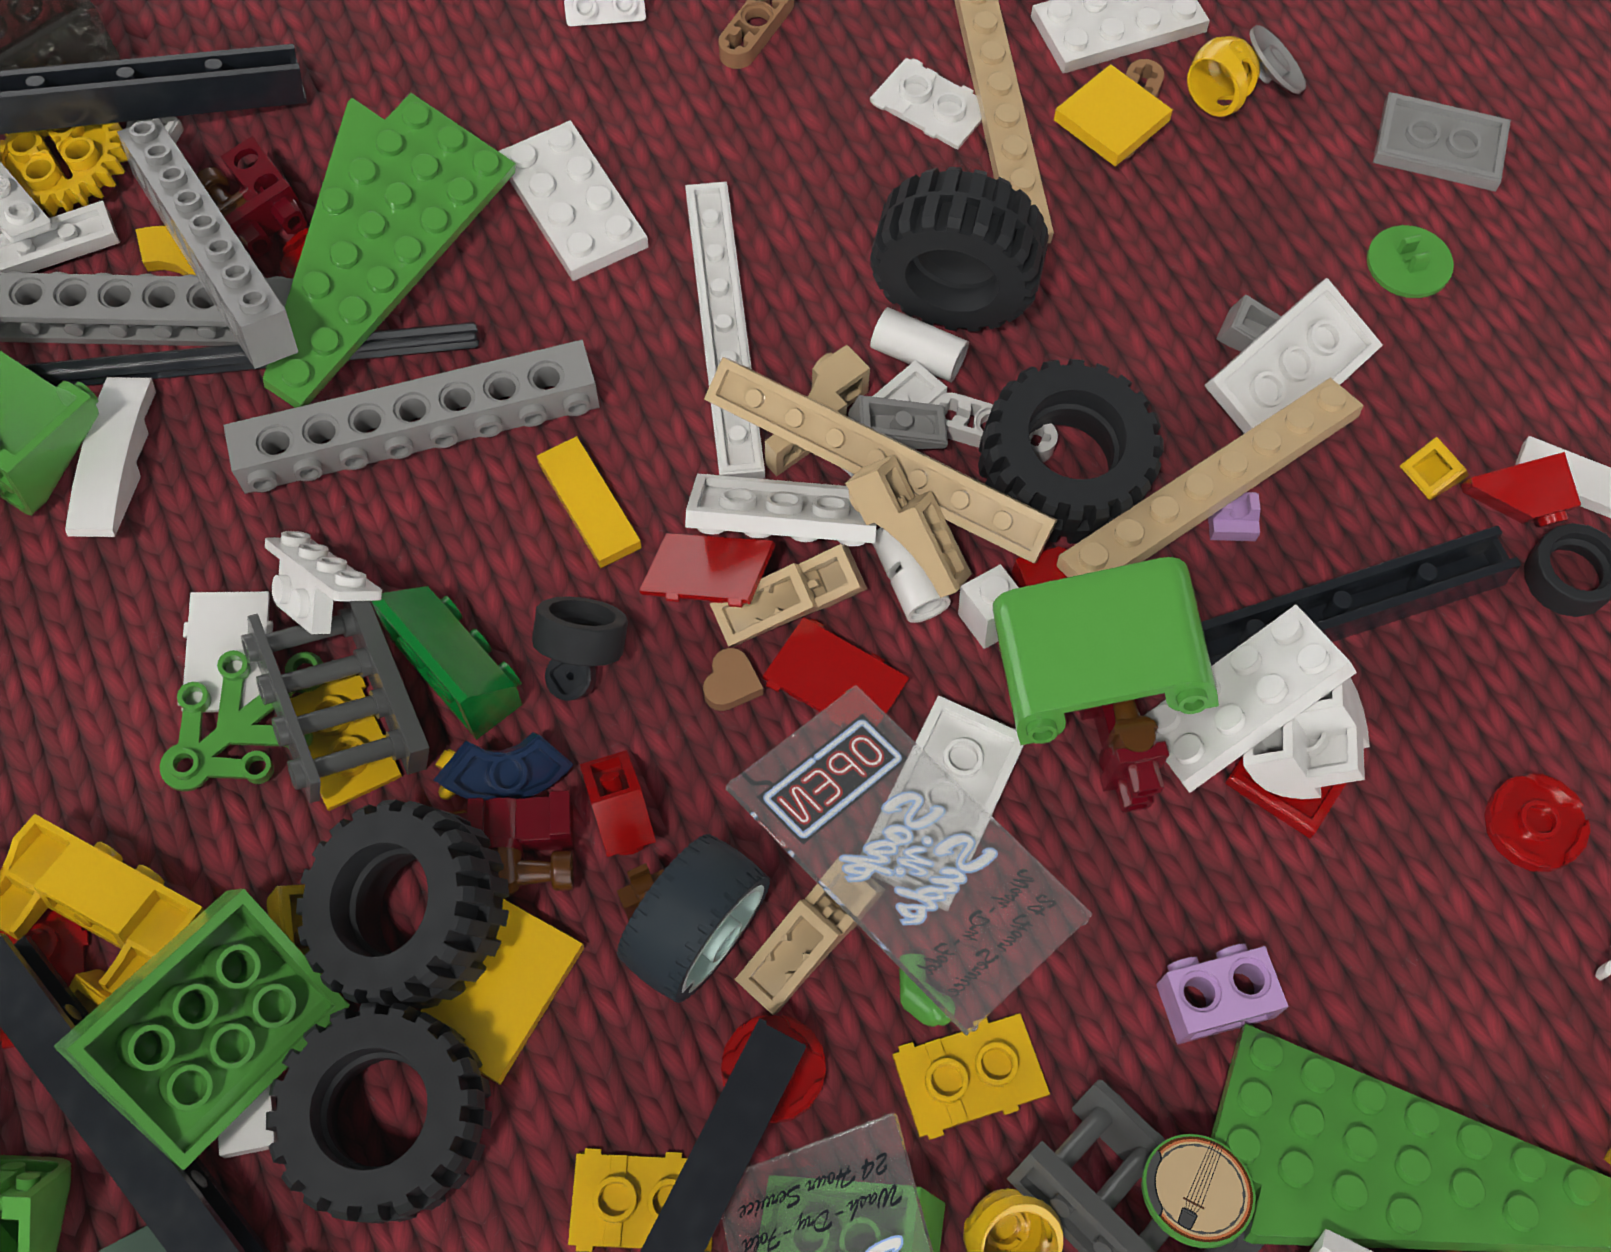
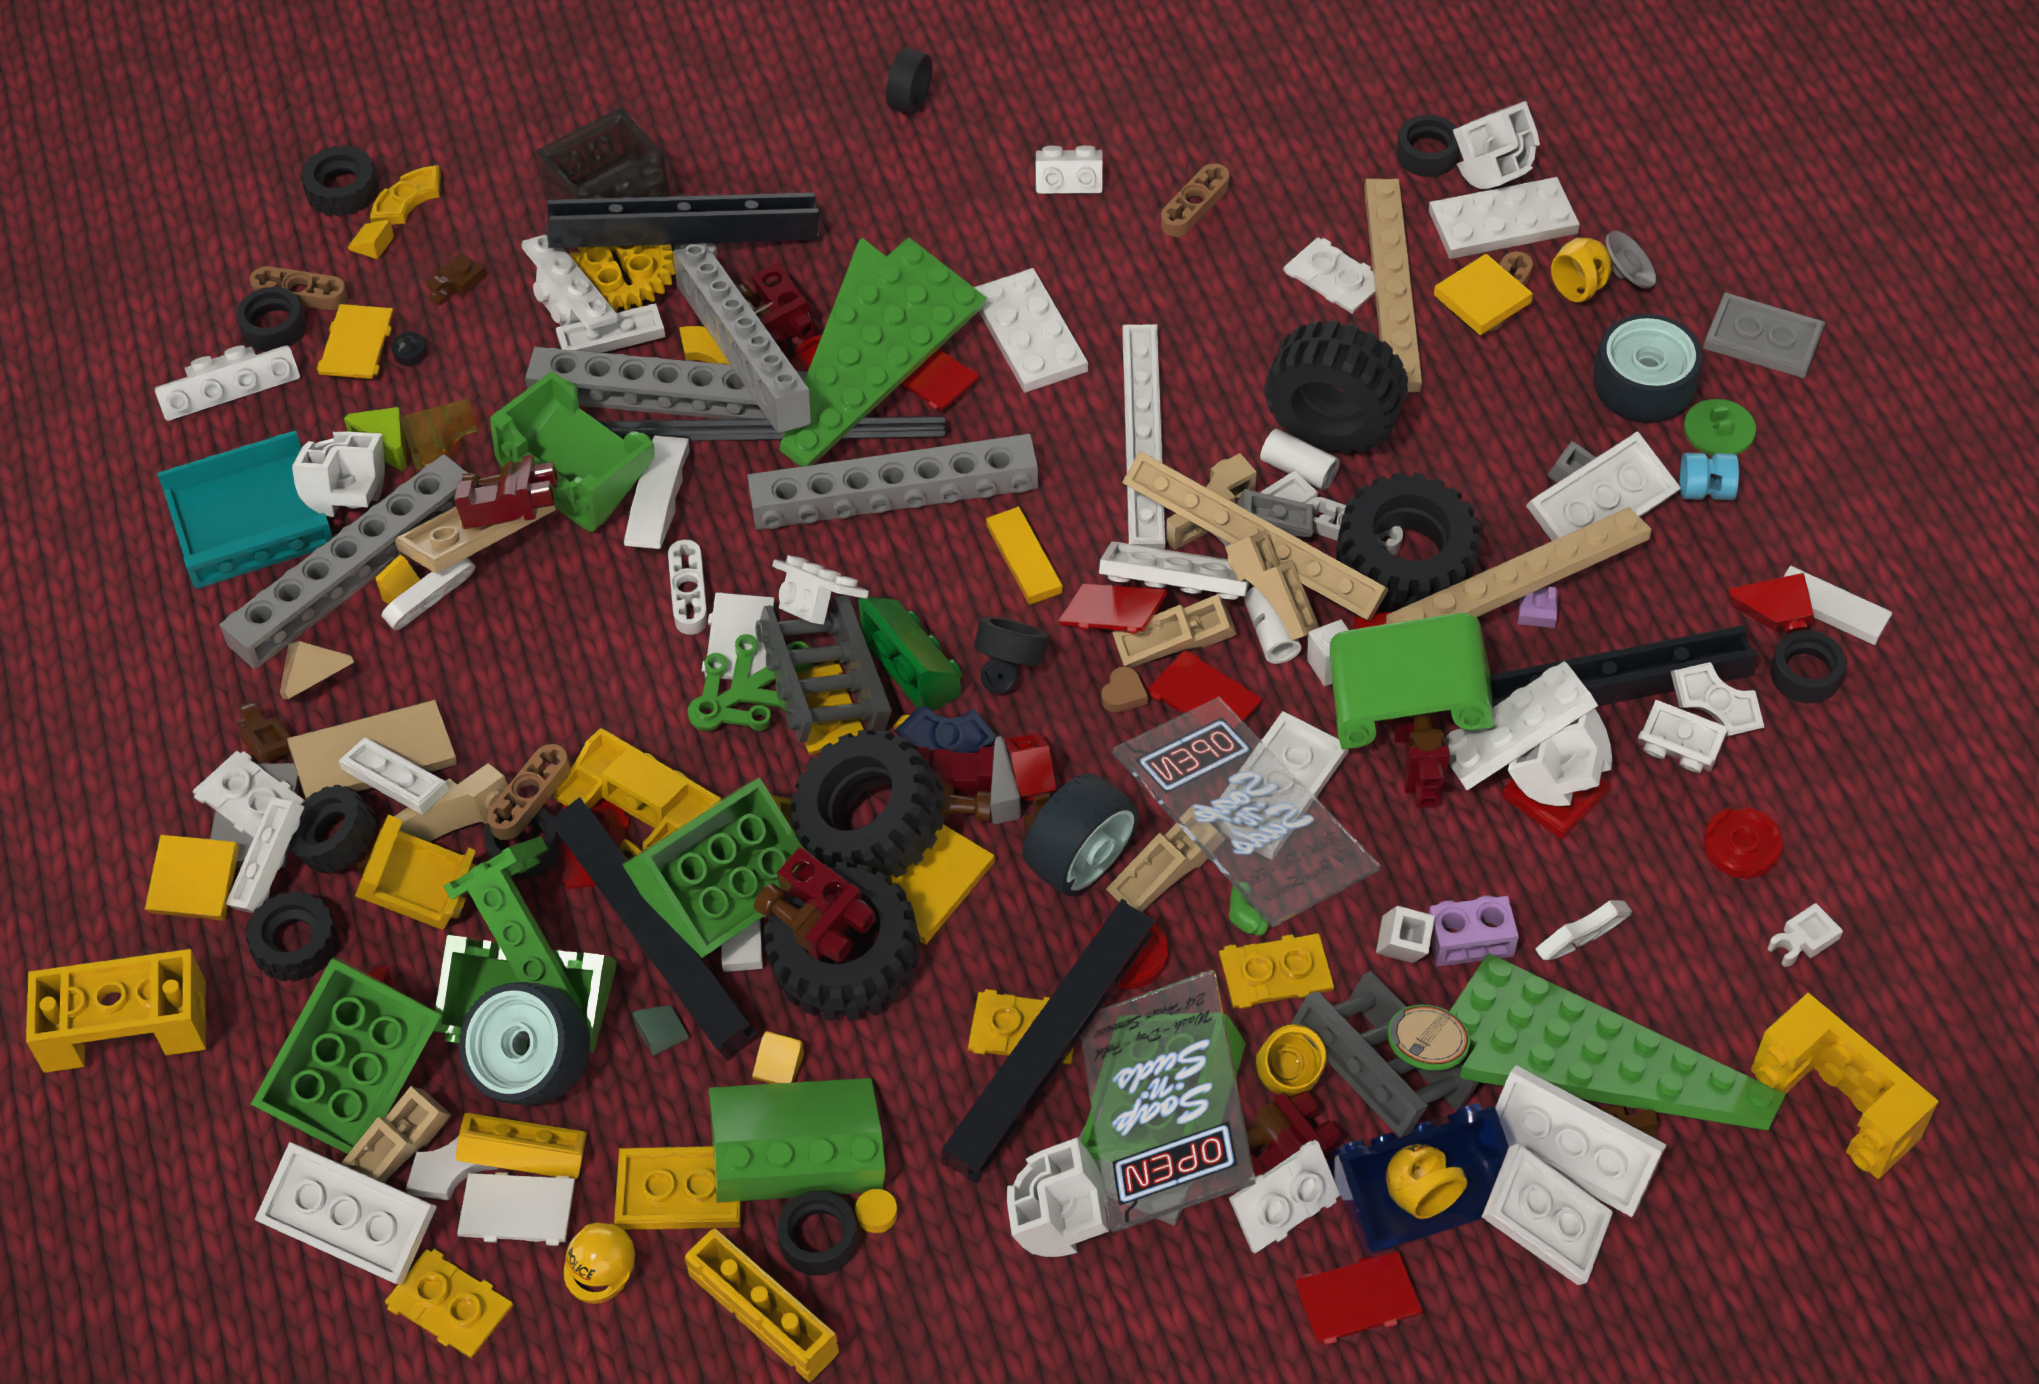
camera: 10 degrees right, 10 degrees down
(144, 568) = (696, 597): none -> white beam
(347, 1099) = (827, 910): none -> dark red hips
(467, 274) = (940, 380): none -> red piece
(587, 853) = (1004, 792): none -> light grey slope
(1139, 1017) = (1405, 934): none -> white brick
(1321, 193) = (1647, 368): none -> wheel
(1364, 980) = (1584, 930): none -> white tile
(1420, 327) = (1696, 479): none -> medium azure wheel
(1434, 469) = (1708, 585): yellow slope -> none
(1441, 681) = (1682, 736): none -> white bracket
(1461, 618) = (1704, 690): none -> white tile

